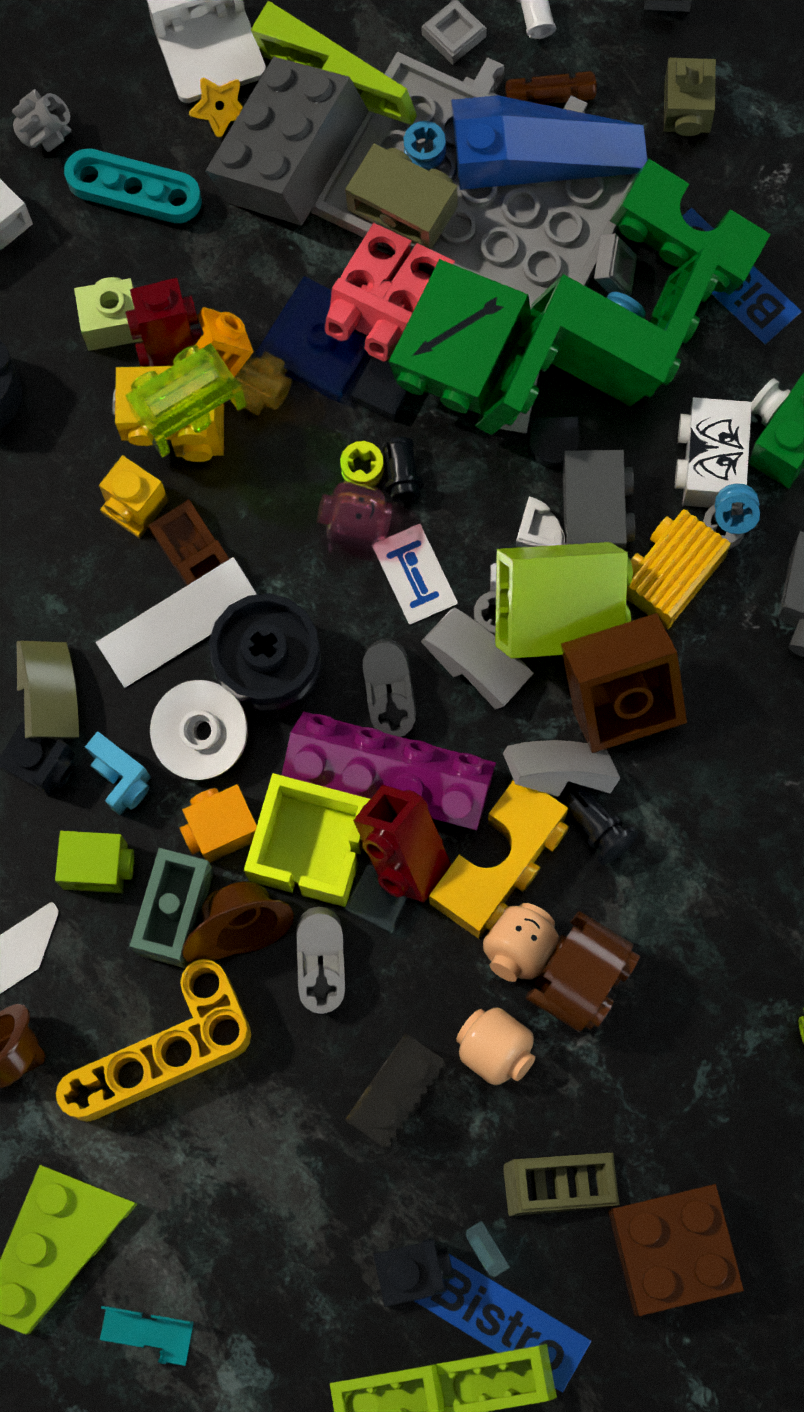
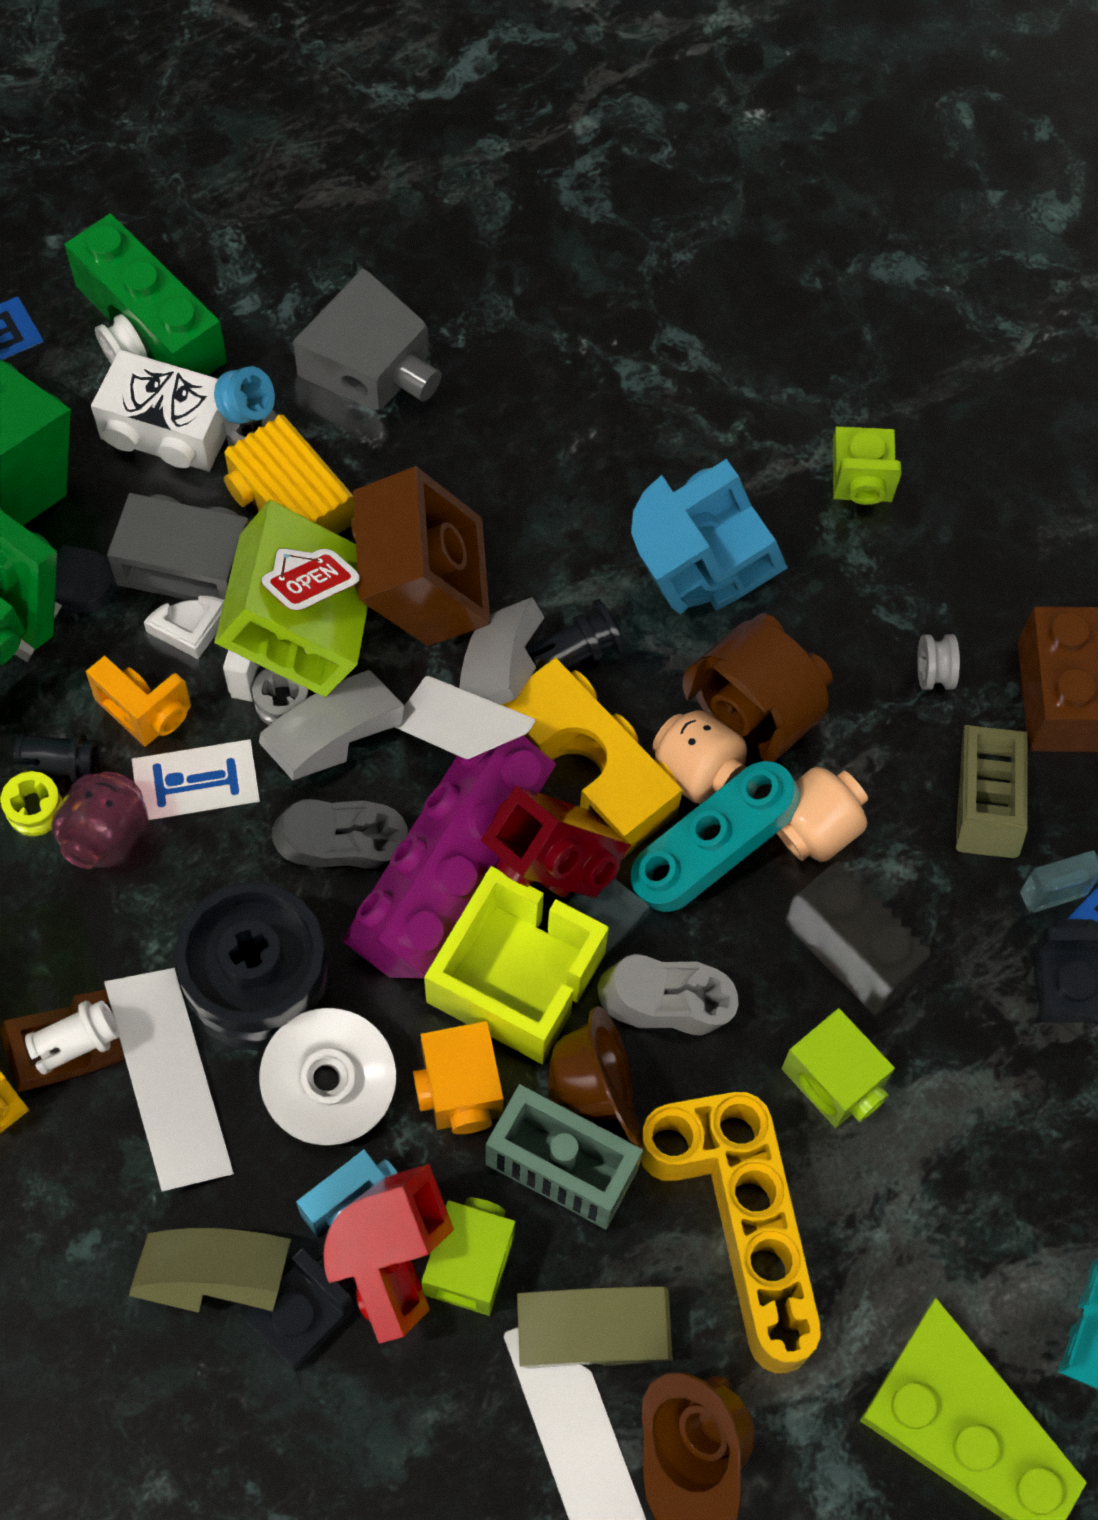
camera: 85 degrees left, 10 degrees down
(62, 961) = (594, 1327): none -> olive slope
(74, 799) = (378, 1239): none -> brick
(189, 556) = (73, 1036): none -> white pin
(288, 1100) = (839, 1070): none -> lime brick
(459, 503) = (133, 703): none -> light orange bracket
(460, 982) = (700, 862): none -> teal plate
(491, 747) = (460, 719): none -> white sticker
(562, 599) = (308, 577): none -> sticker
(660, 1119) = (938, 662): none -> light grey bush
(708, 900) = (704, 540): none -> dark azure brick

